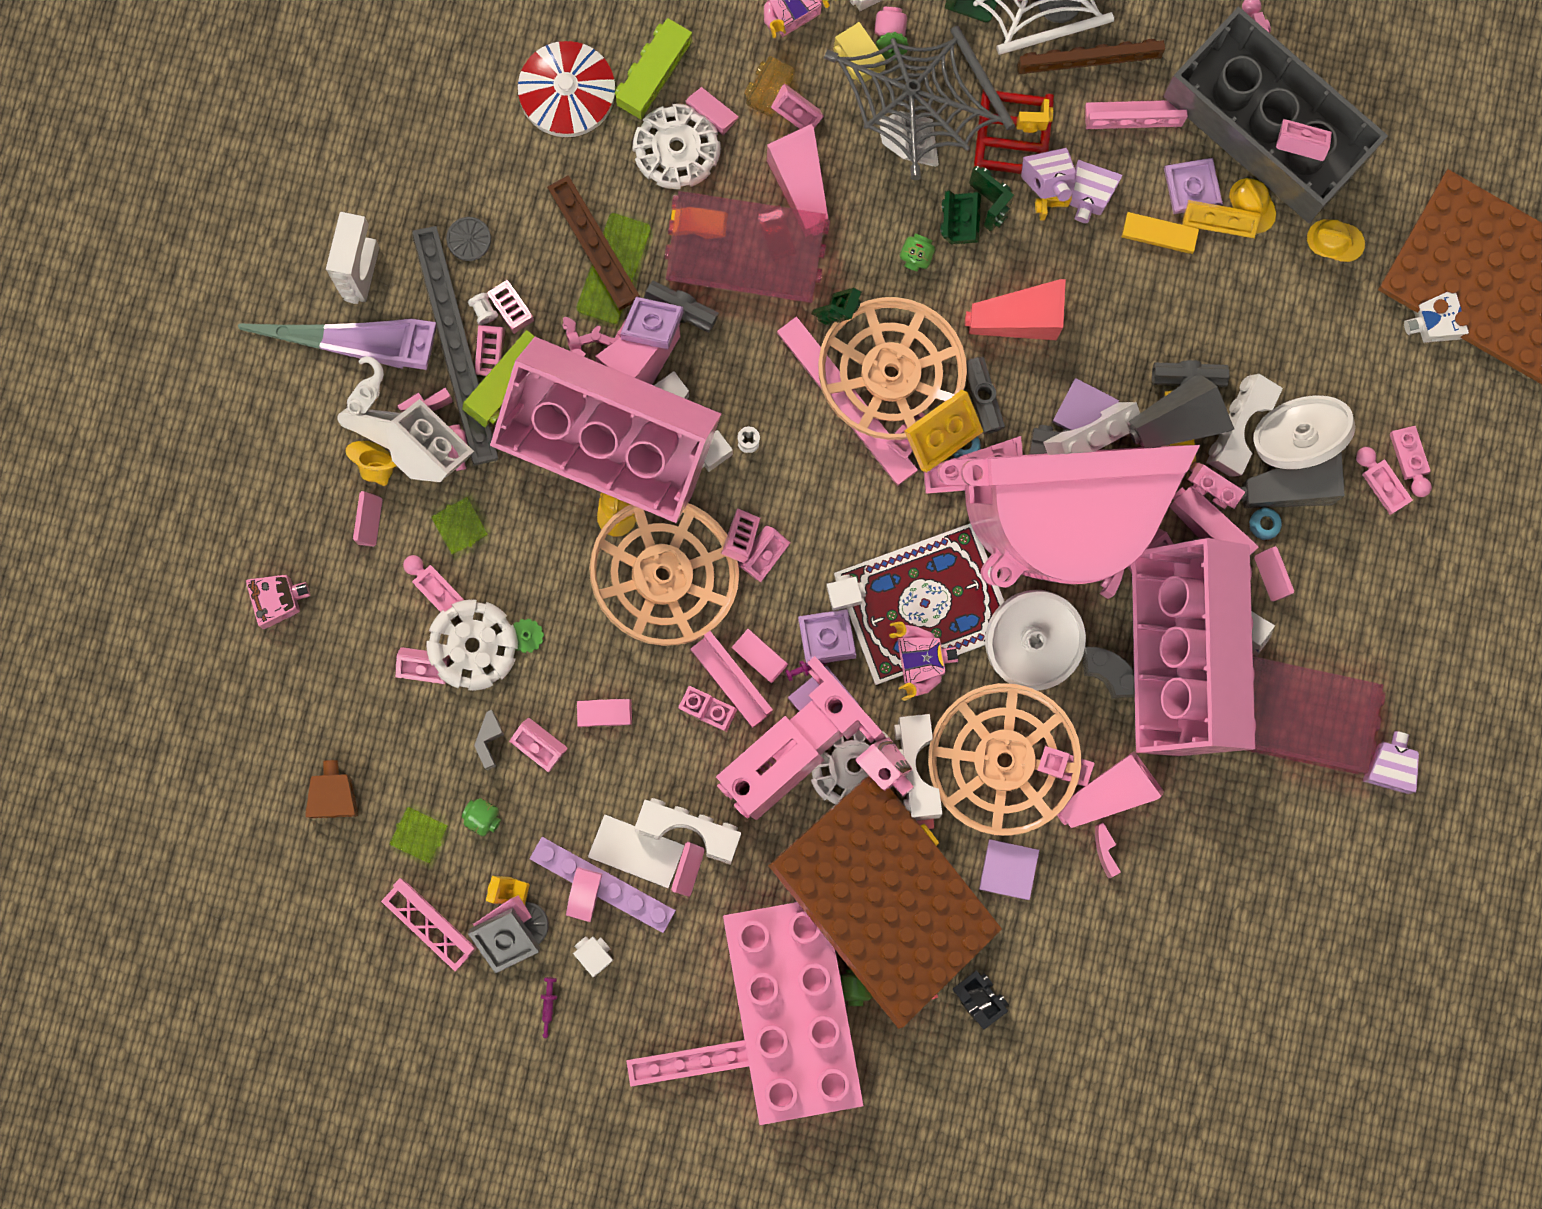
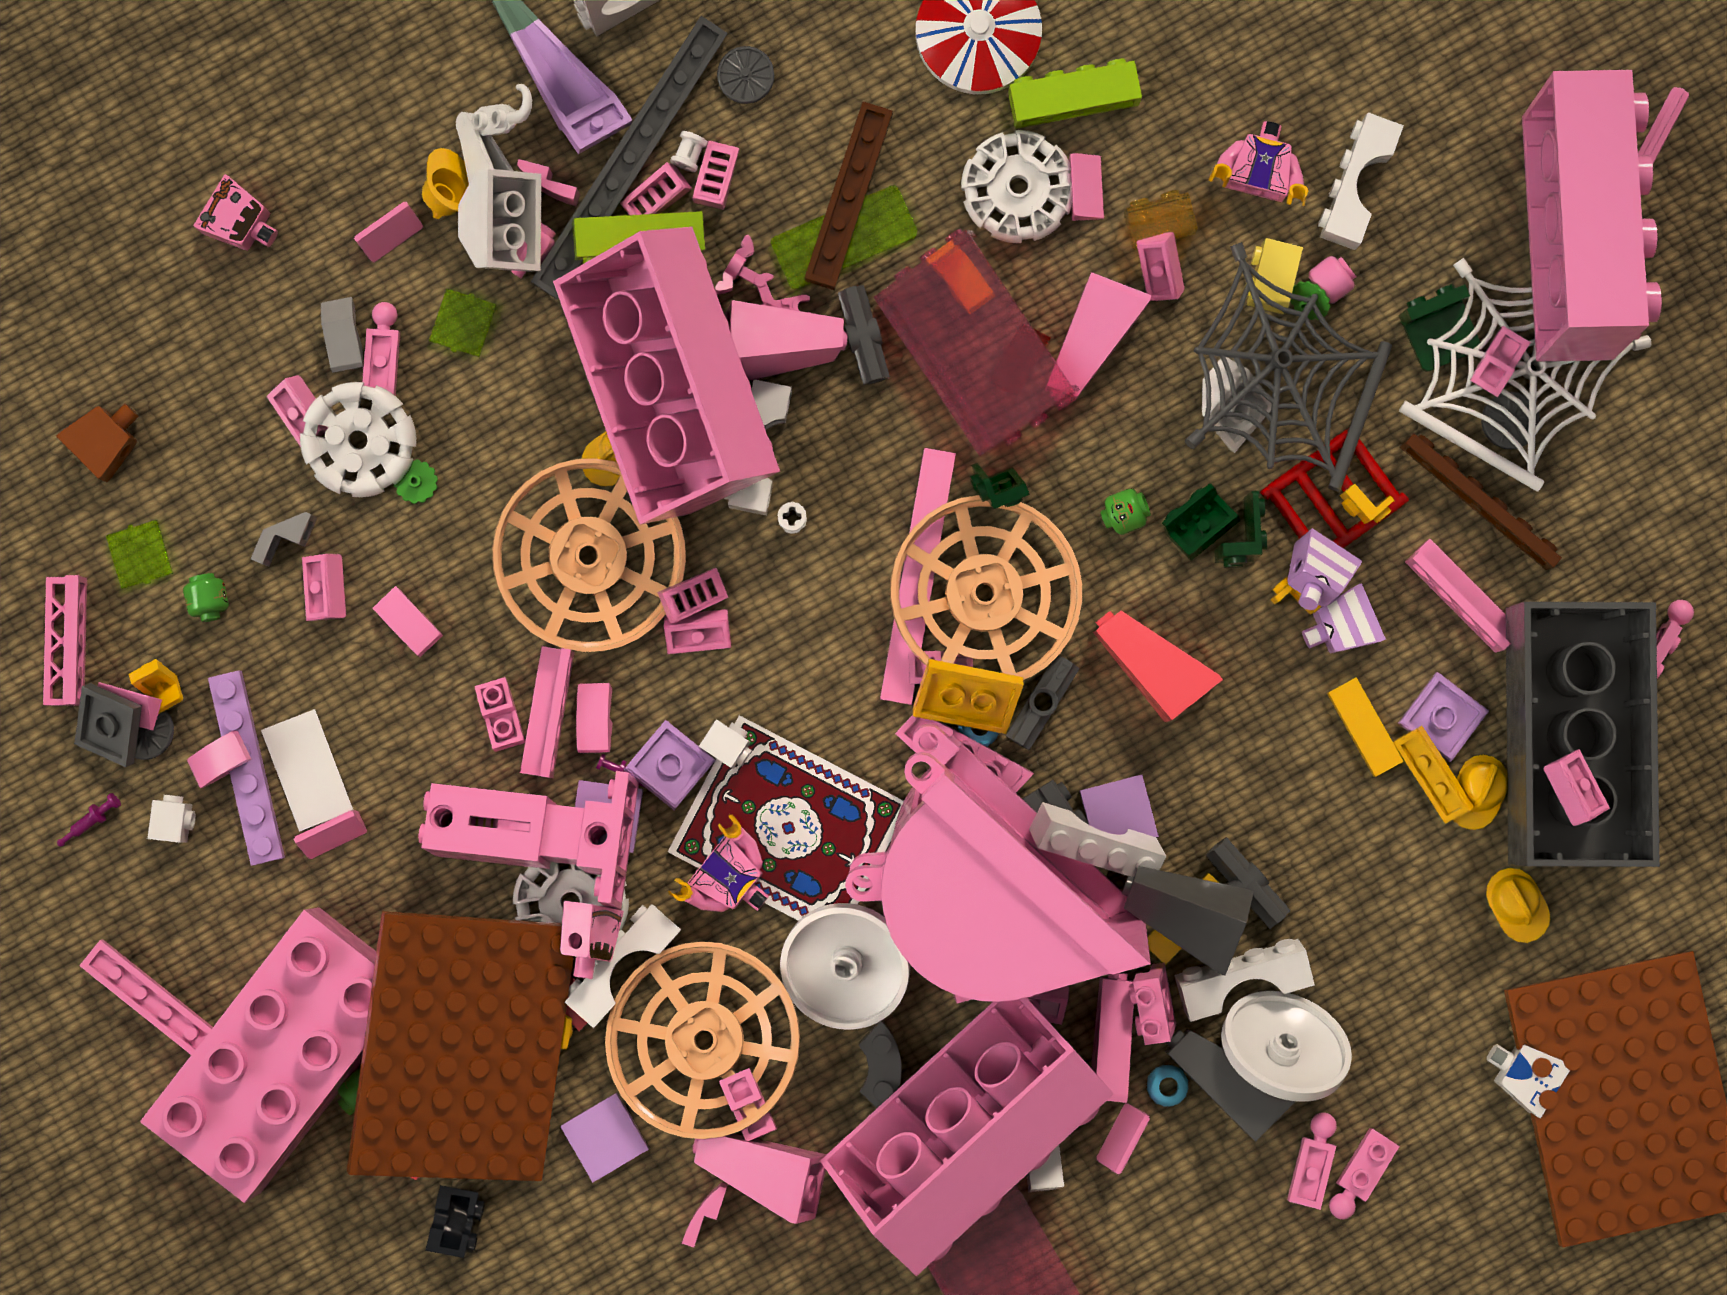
camera: 50 degrees right, 5 degrees up
(401, 599) = (341, 334): none -> light grey slope
(652, 323) = (815, 323): lavender tile -> none
(657, 820) = (350, 763): white arch -> none

